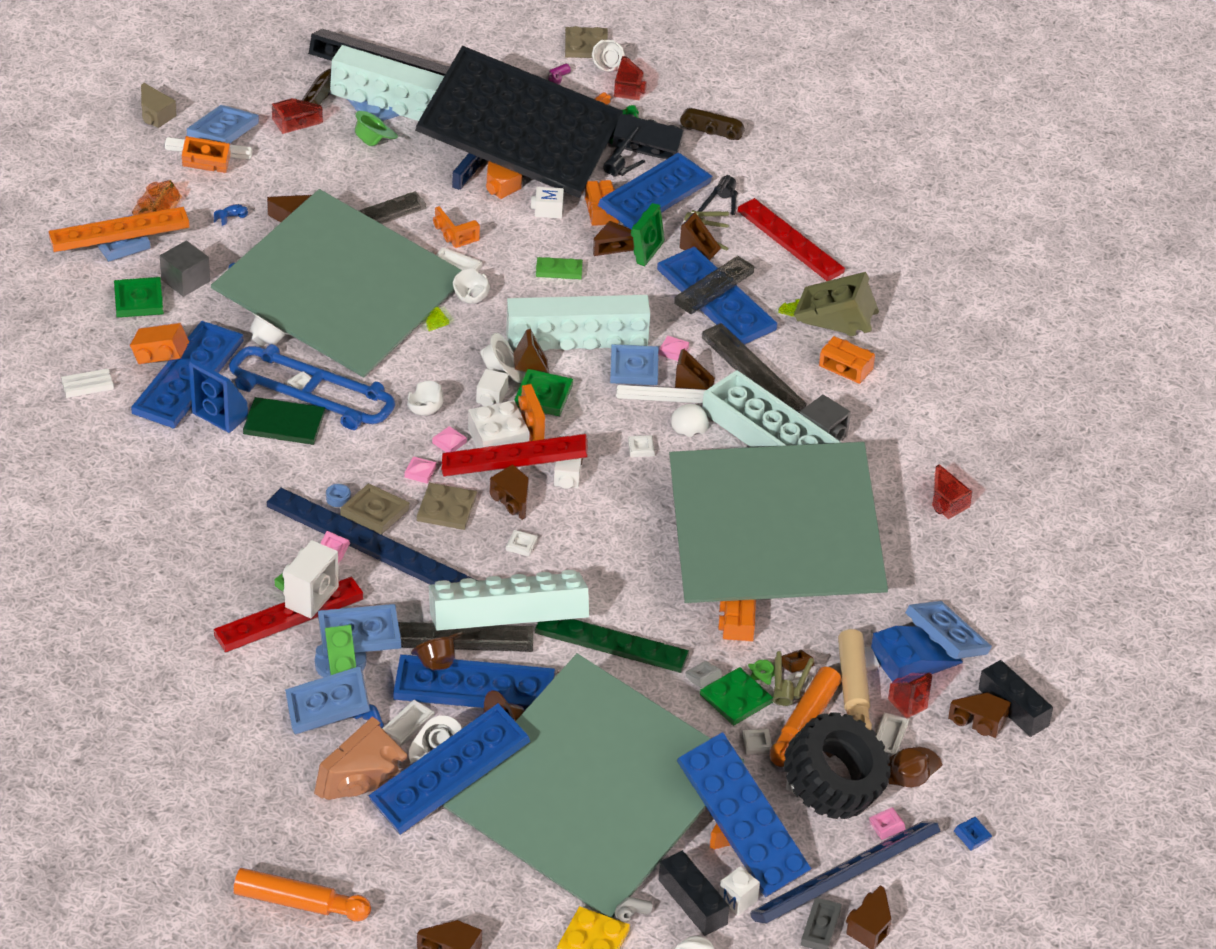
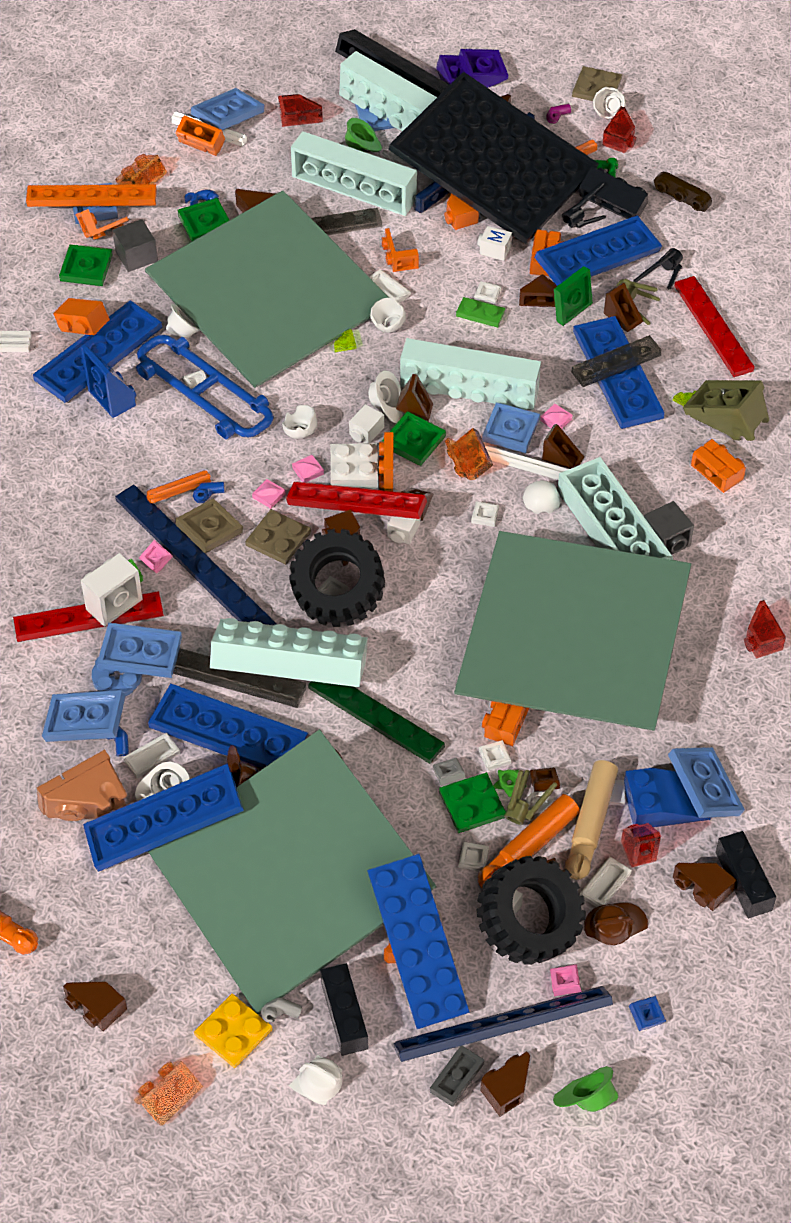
camera: 20 degrees right, 10 degrees up
(126, 259) = (88, 224): none -> orange bracket
(156, 106) = (177, 79): dark tan slope -> none
(241, 232) = (202, 218): none -> green plate
(284, 420) = (165, 416): dark green tile -> none
(319, 88) = (327, 91): dark brown plate -> none
(332, 477) = (178, 486): none -> orange axle
(337, 495) = (182, 503): medium blue tile -> none
(340, 648) = (111, 668): bright green plate -> none
(356, 478) = (205, 490): none -> blue arm
(381, 162) = (354, 173): none -> light aqua brick
(437, 653) = (198, 694): reddish brown piece -> none
(449, 41) = (481, 64): none -> dark purple slope
(528, 496) = (333, 548): none -> black tyre
(558, 249) = (487, 293): none -> white tile
(606, 395) = (469, 455): none -> clear orange bracket
(739, 890) = (389, 1018): white brick -> none
(740, 651) = (494, 755): none -> white tile
(747, 363) = (623, 457): clear smoke plate -> none
(950, 908) = (589, 1092): none -> bright green piece

